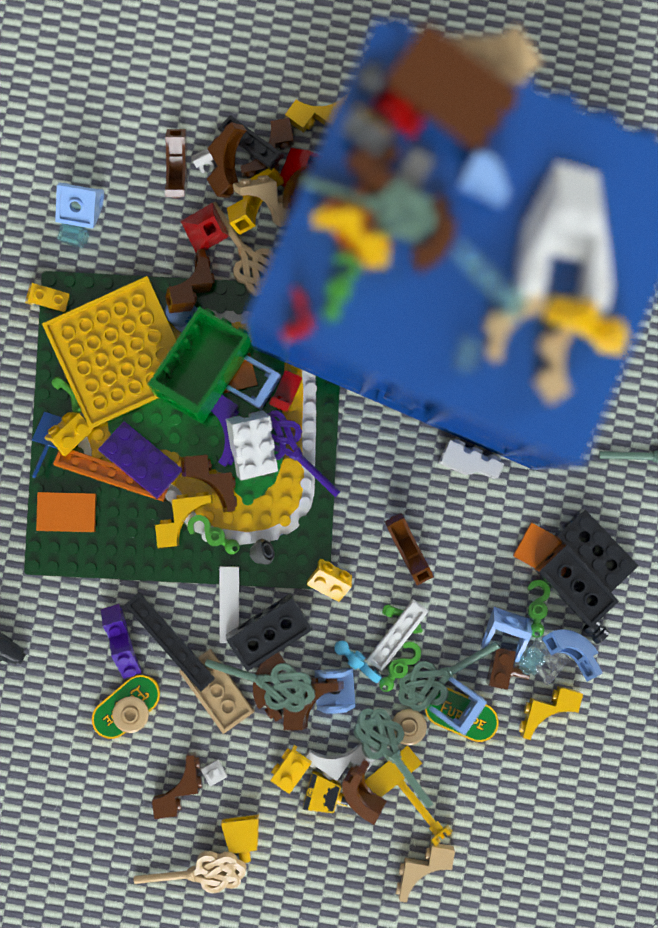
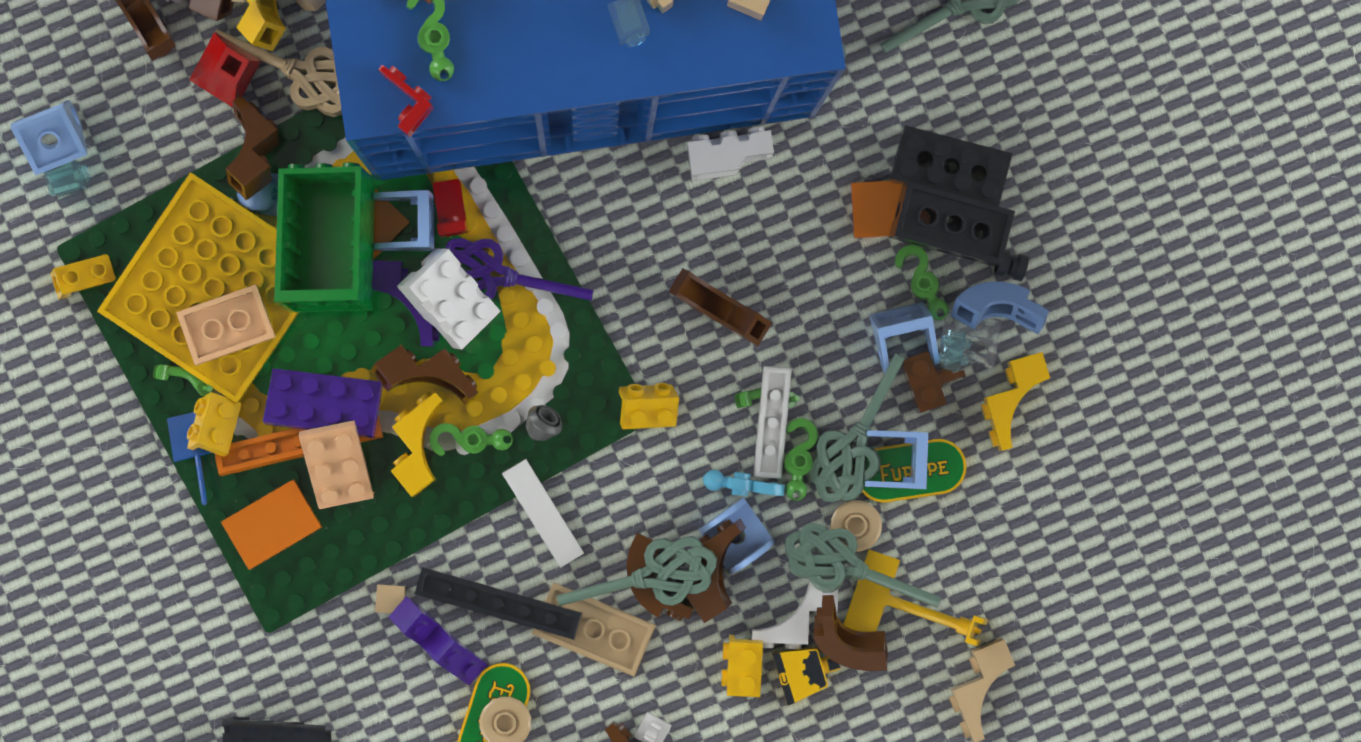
camera: 35 degrees left, 0 degrees up
(108, 597) = (388, 597): none -> tan tile
(112, 379) = (226, 324): none -> light nougat plate
(125, 501) = (336, 464): none -> light nougat plate
(268, 645) = (621, 532): black brick -> none

